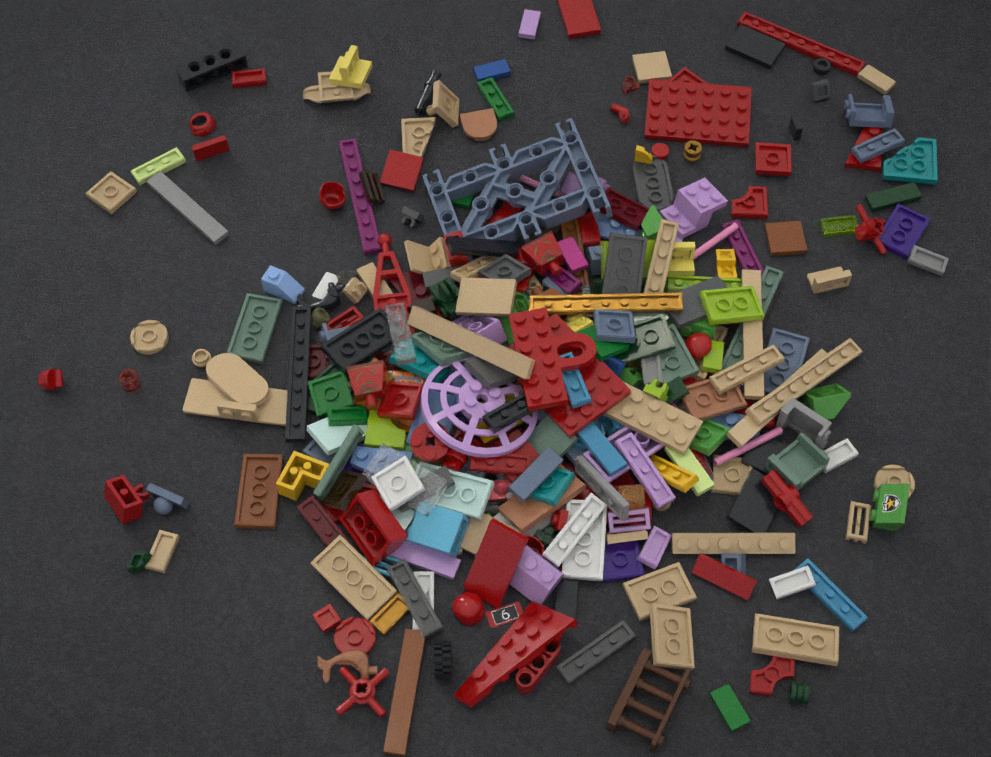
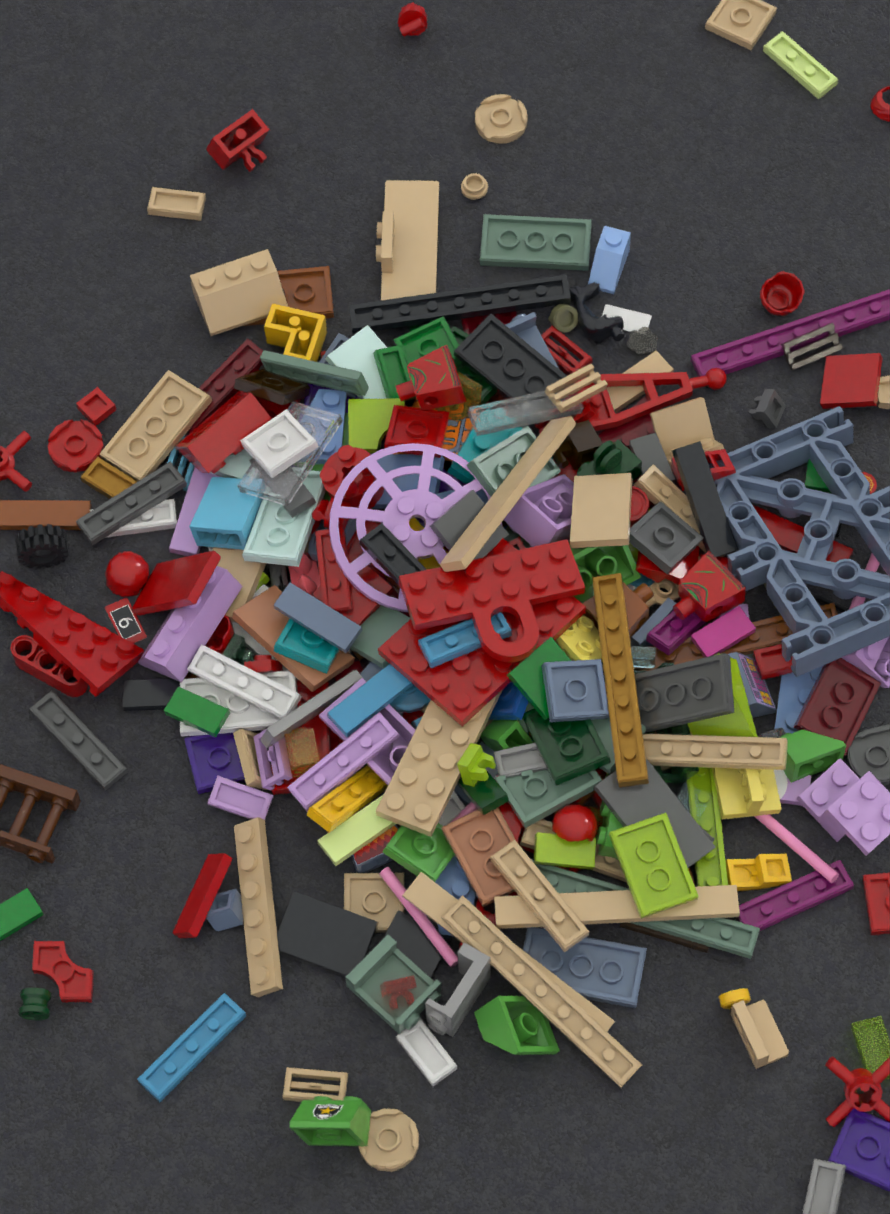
camera: 85 degrees right, 5 degrees up
(131, 384) = (430, 114): clear red wheel -> none
(138, 561) = (157, 179): dark green tile -> none
(165, 499) = (248, 190): sand blue tile -> none
(188, 208) = (730, 117): light grey tile -> none
(210, 148) = (842, 121): red tile -> none
(237, 379) = (439, 234): tan tile -> none
(257, 509) = (237, 292): none -> tan slope
(355, 290) = (617, 353): tan tile -> none
(356, 658) = (40, 448): nougat animal -> none
(385, 292) = (571, 379): none -> tan tile
(591, 563) = (197, 711): none -> green tile
(661, 586) = (176, 814): tan tile -> none
(671, 637) = (103, 831): tan tile -> none
(785, 238) = (831, 963): dark orange tile -> none
(786, 498) = (332, 973): red piece -> none
(792, 582) = (202, 990): white tile -> none
(795, 639) = (115, 999): tan tile -> none
(802, 458) = (397, 988): none -> clear red tile
(808, 286) = (729, 998): none -> yellow tile

